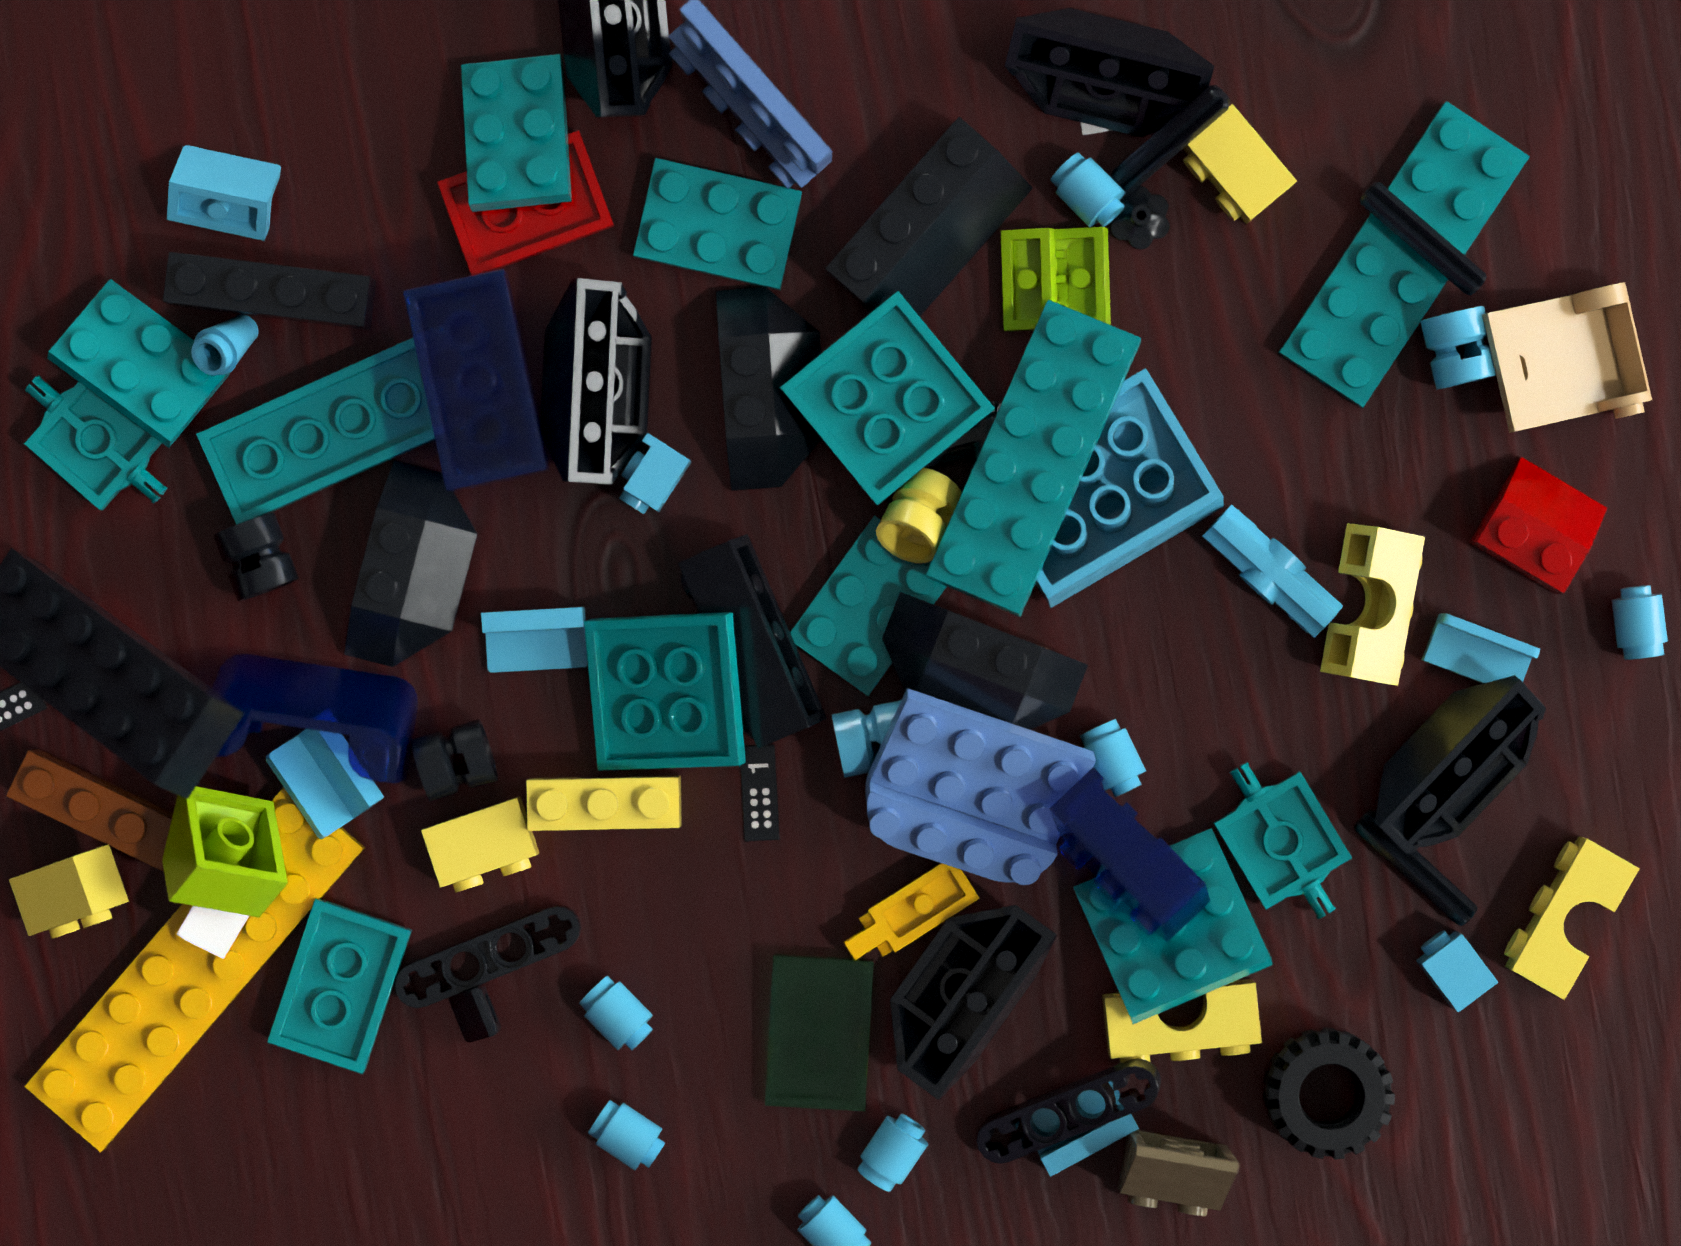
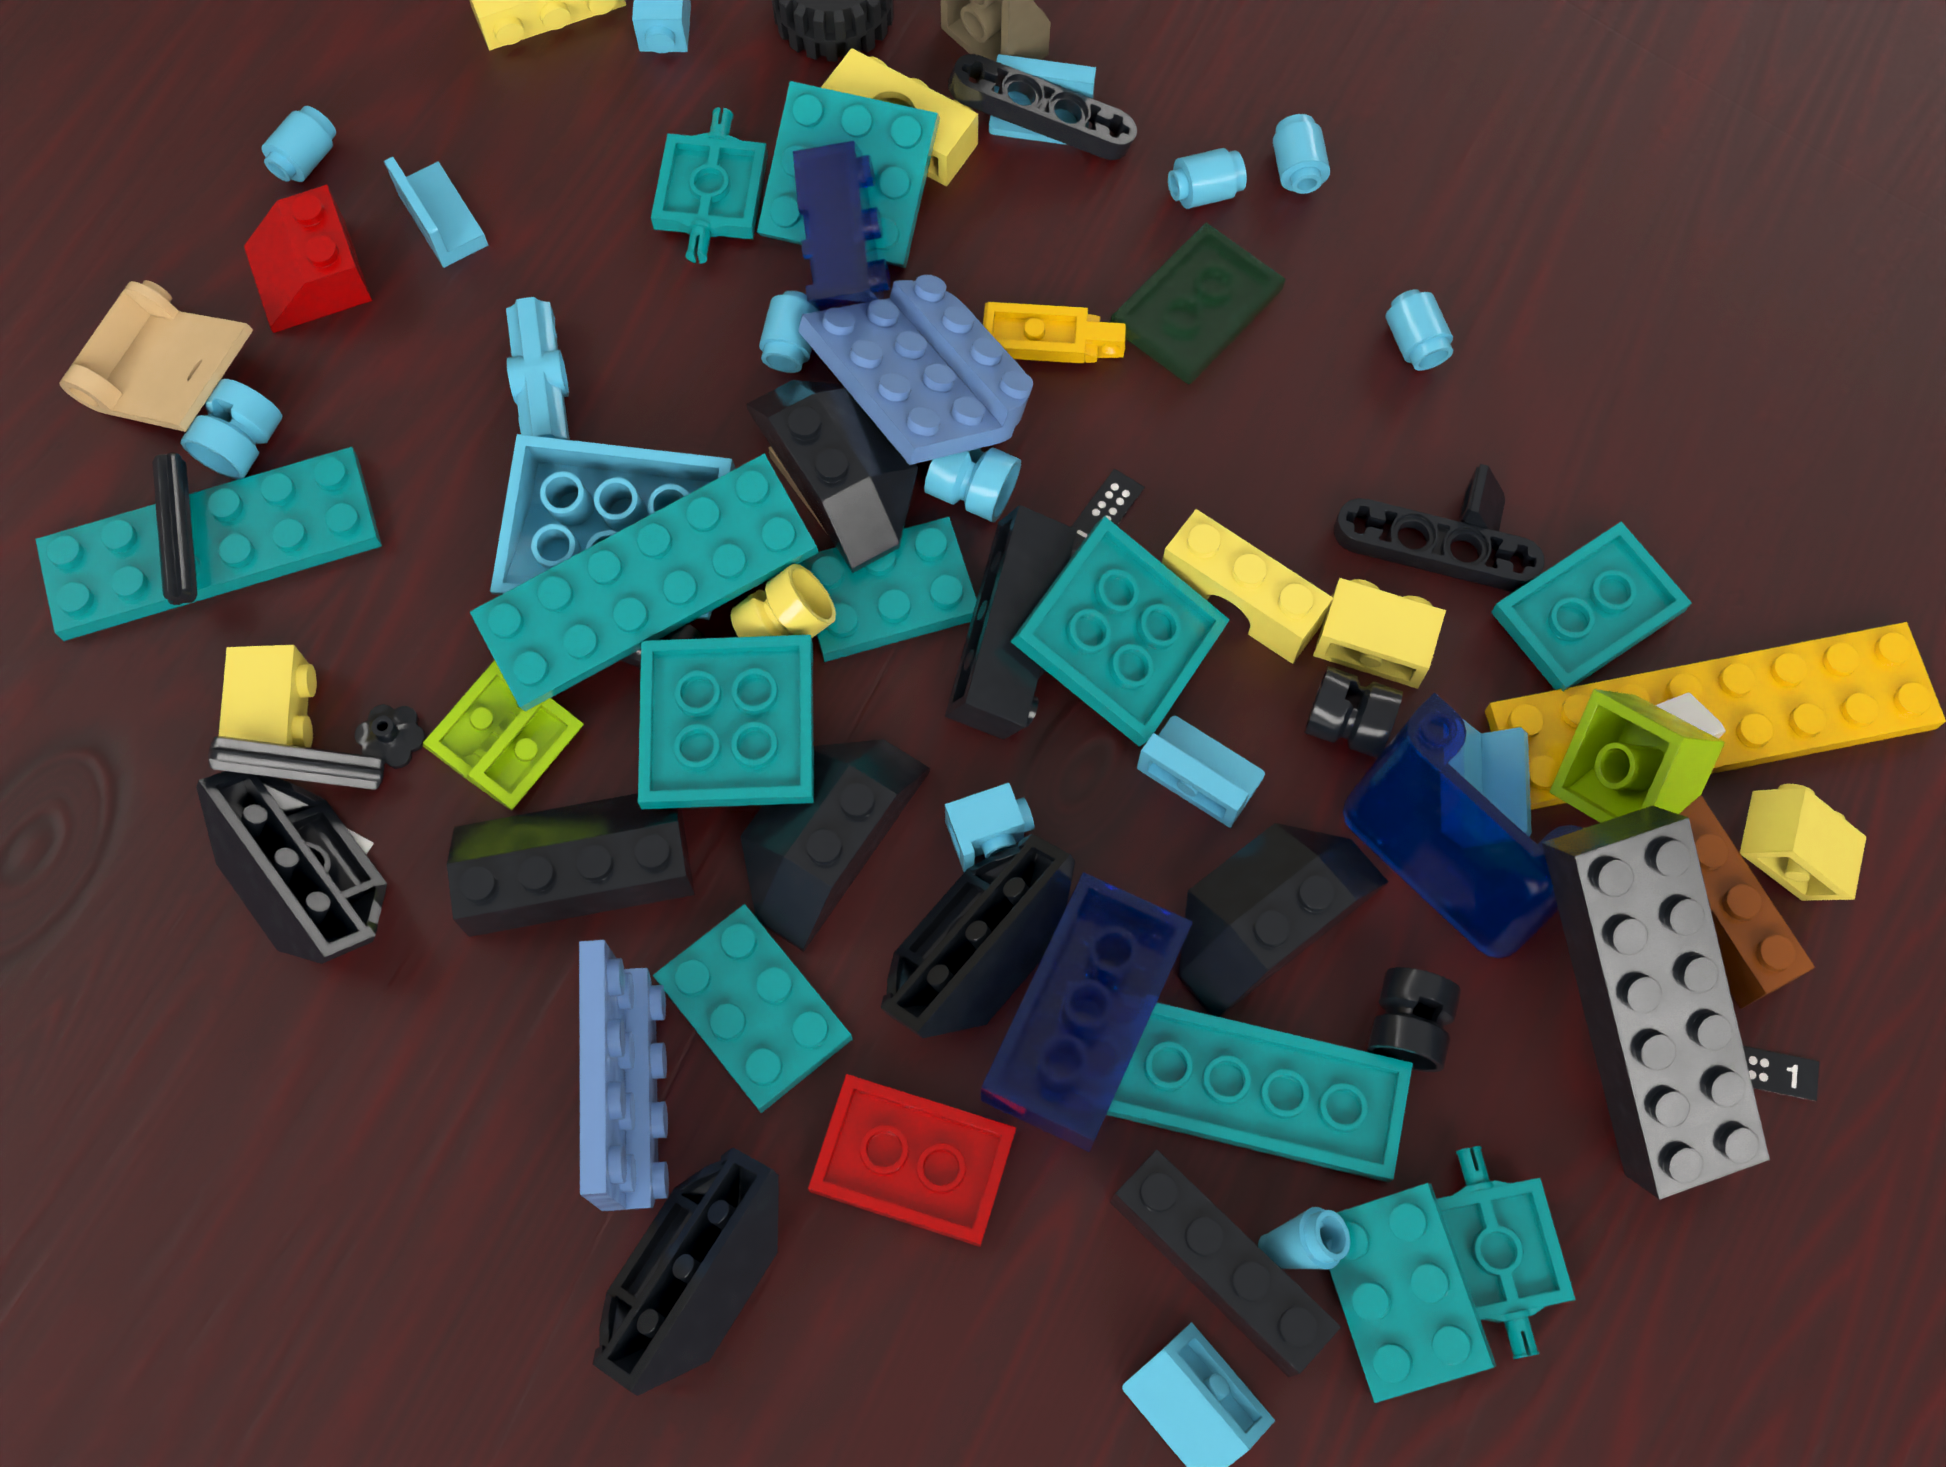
camera: 140 degrees left, 20 degrees down
(516, 133) = (868, 1232): teal plate -> none
(617, 1014) = (1359, 423): medium azure brick -> none
(964, 992) = (1056, 234): black wedge -> none
(1088, 190) = (407, 781): medium azure brick -> none
(1388, 570) = (504, 268): light yellow arch -> none
(1418, 872) = (627, 104): black axle -> none
(1457, 763) = (524, 145): black wedge -> none

